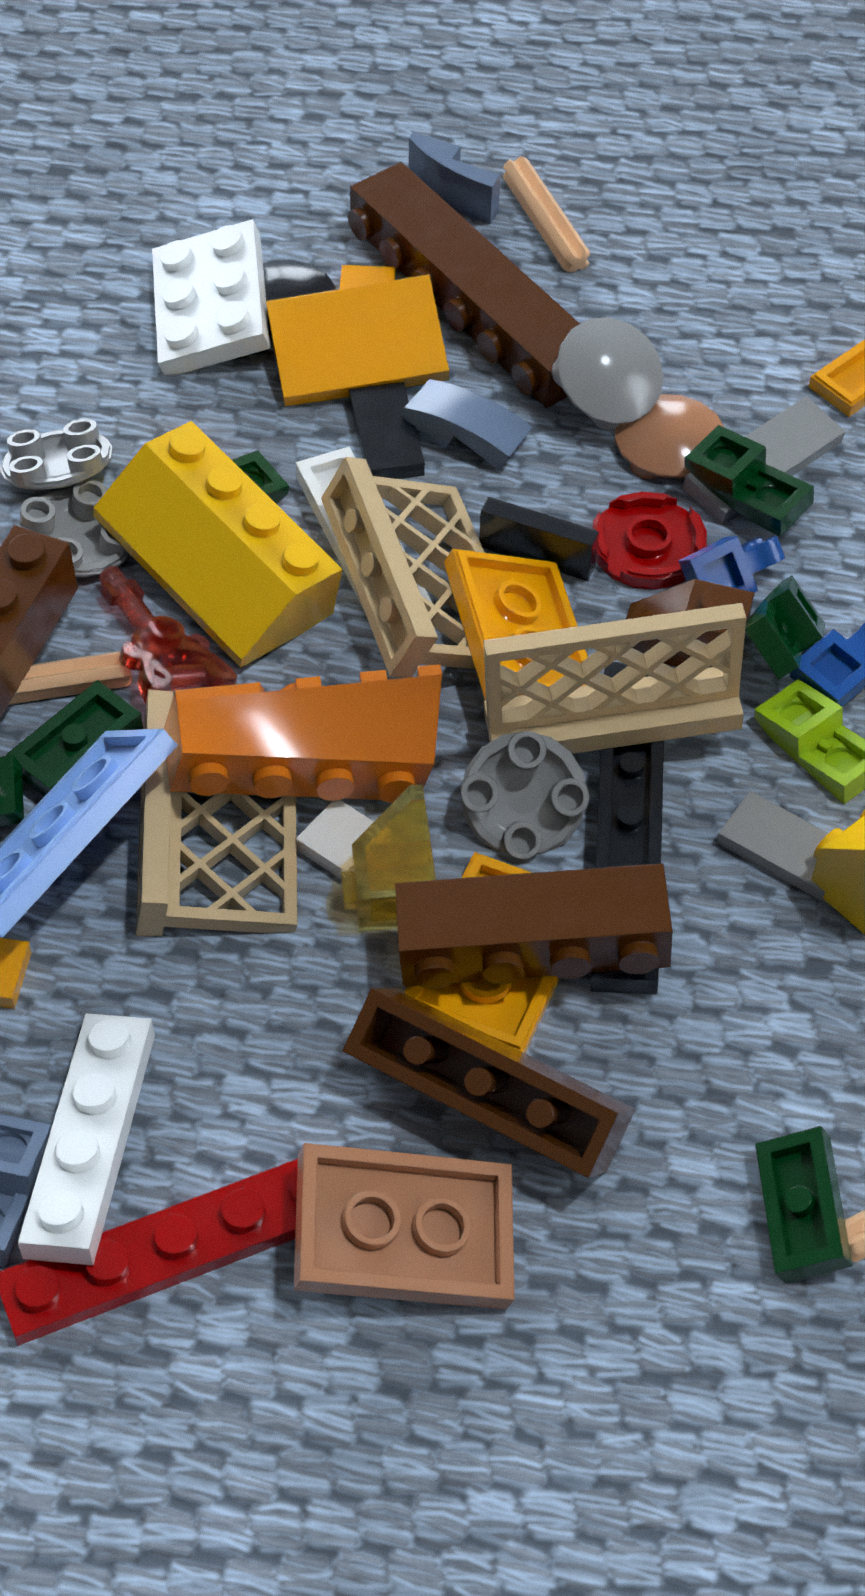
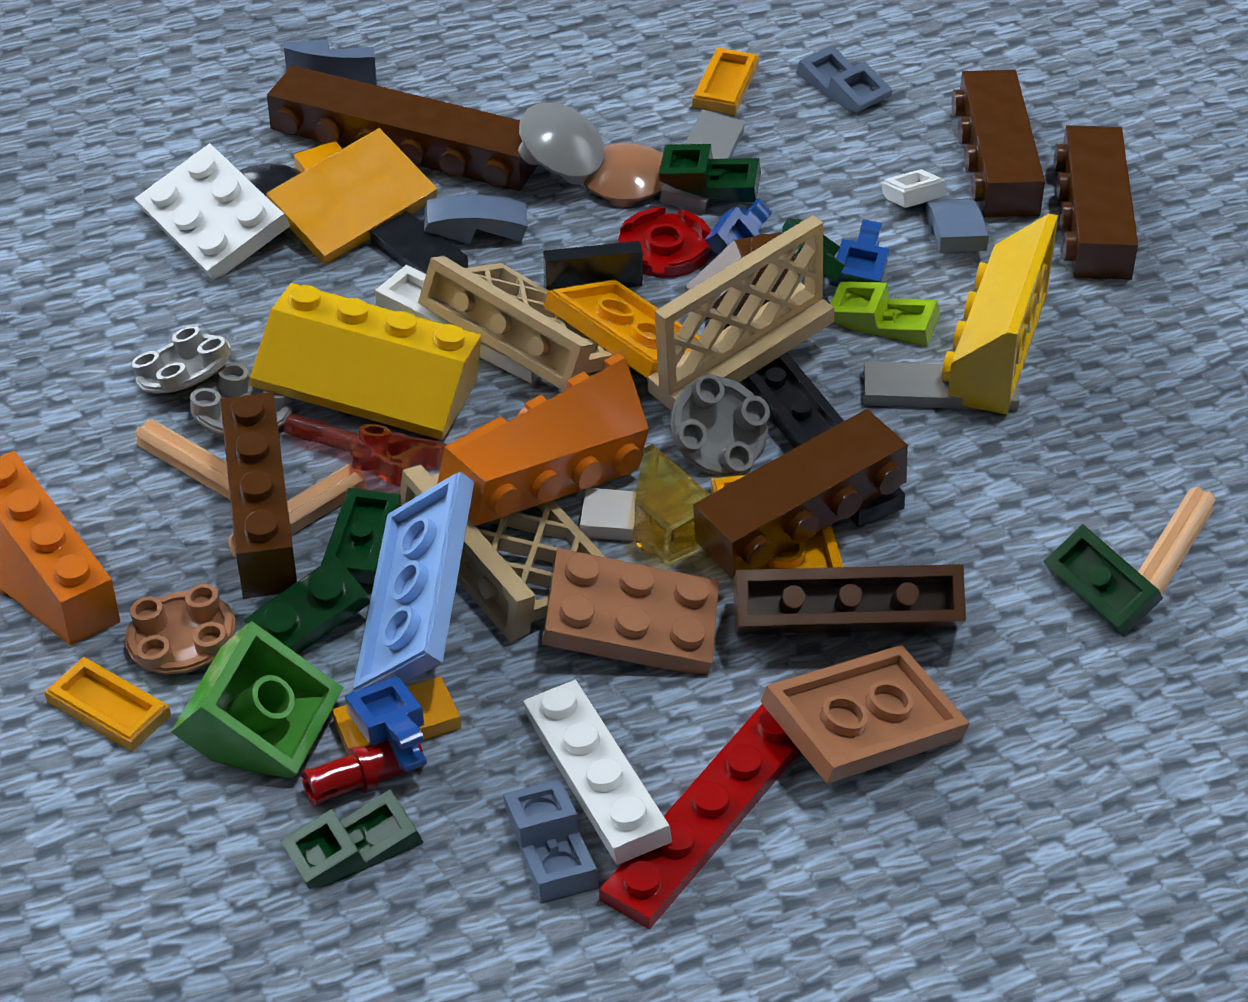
camera: 30 degrees left, 10 degrees down
(264, 970) = (631, 612): none -> nougat plate
(546, 215) = (419, 68): light nougat axle -> none

